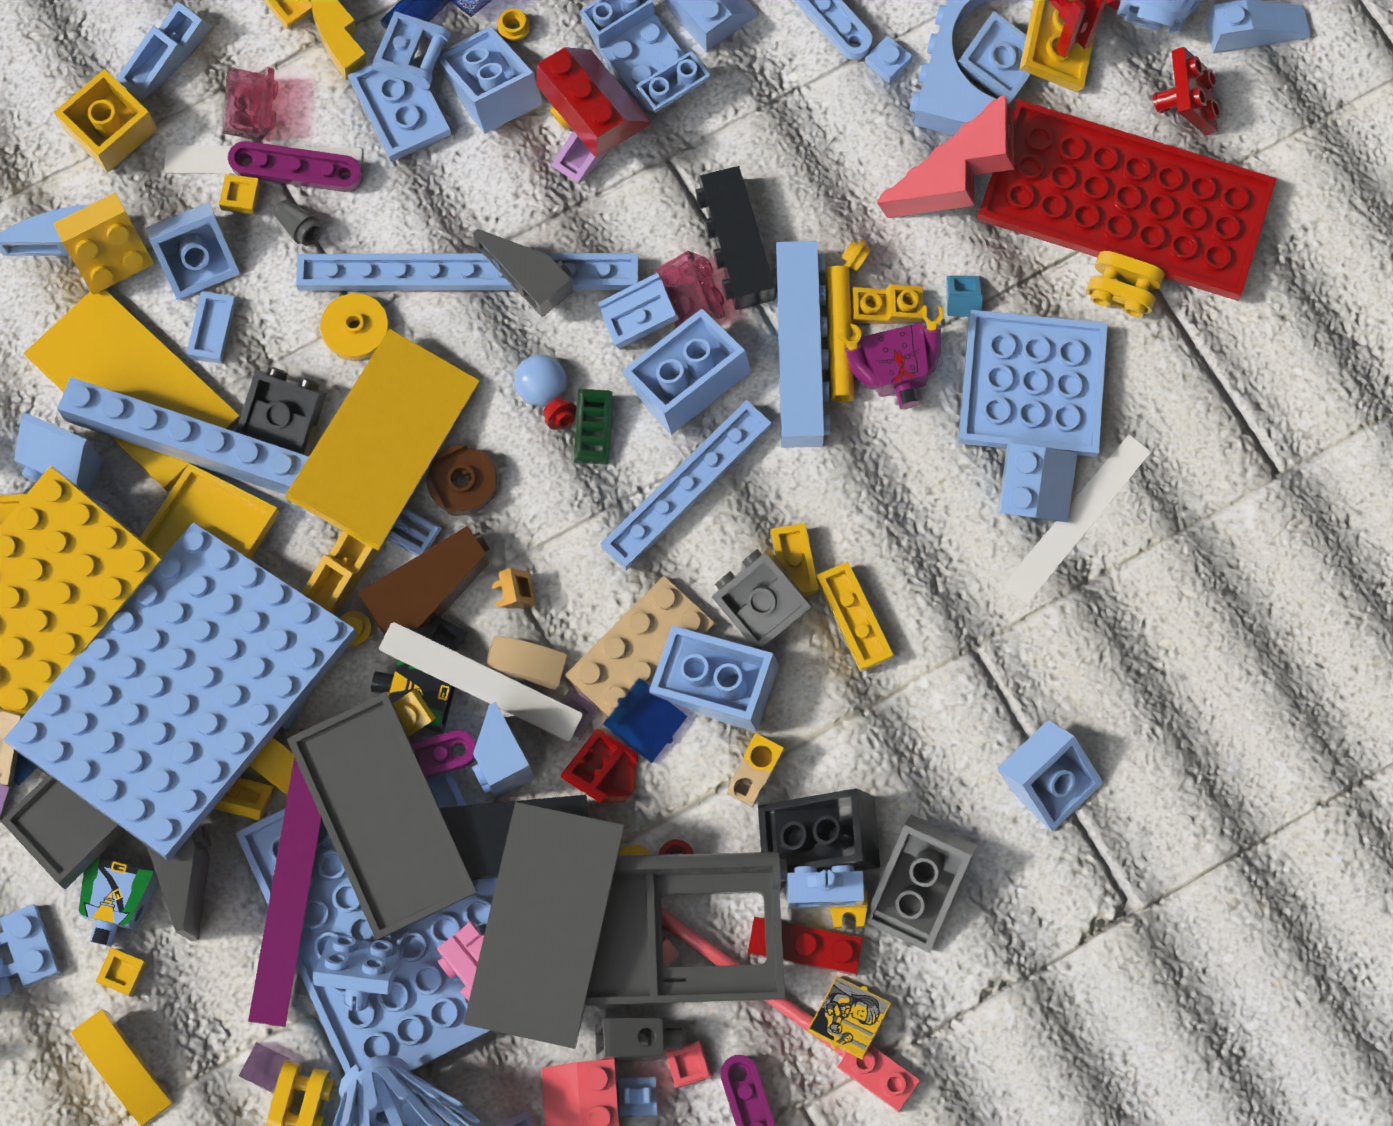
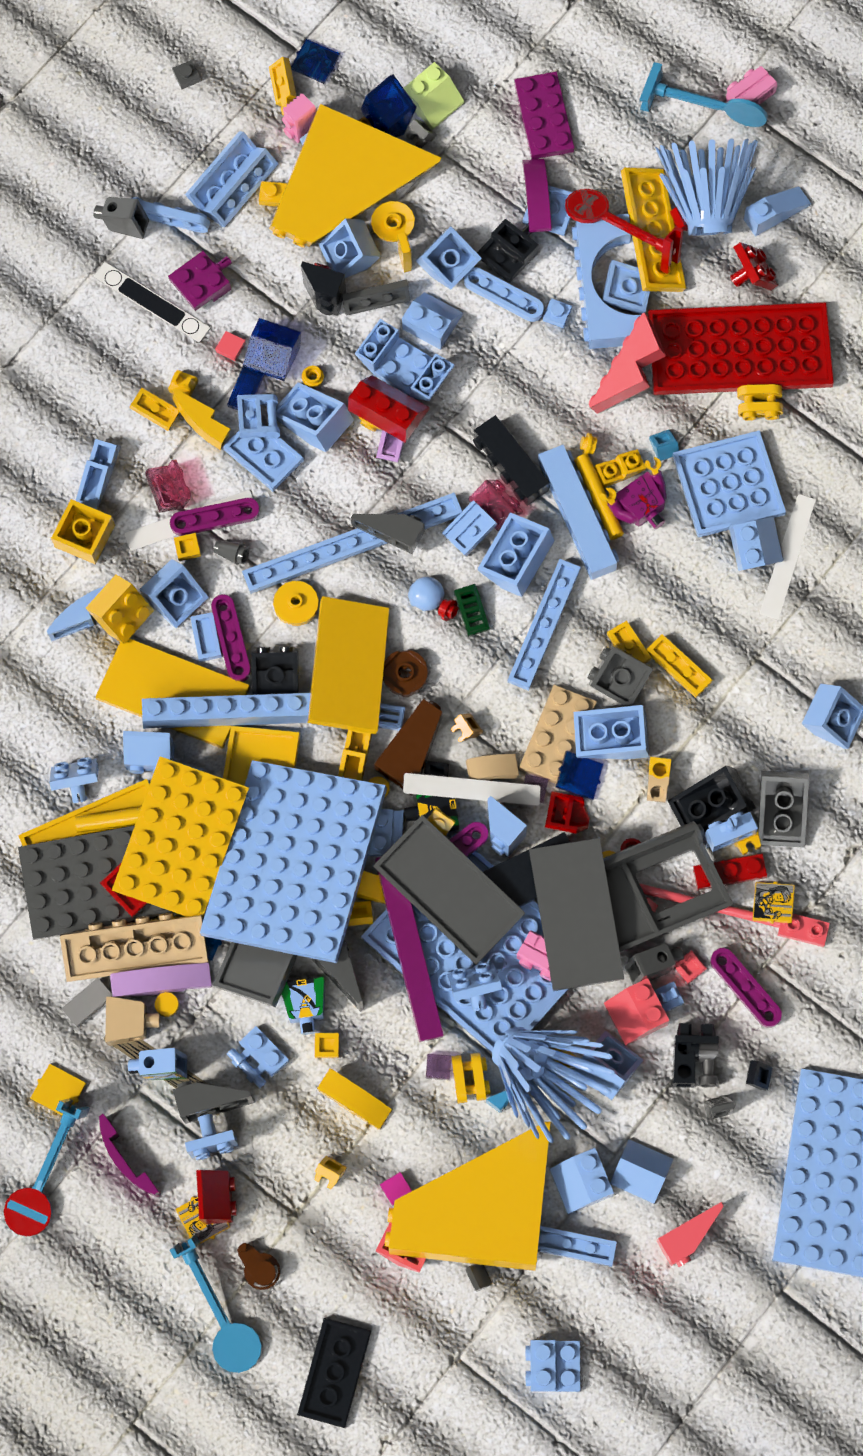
camera: 20 degrees left, 0 degrees up
(242, 340) = (230, 637): none -> magenta plate
(336, 692) = (387, 831): none -> light blue plate

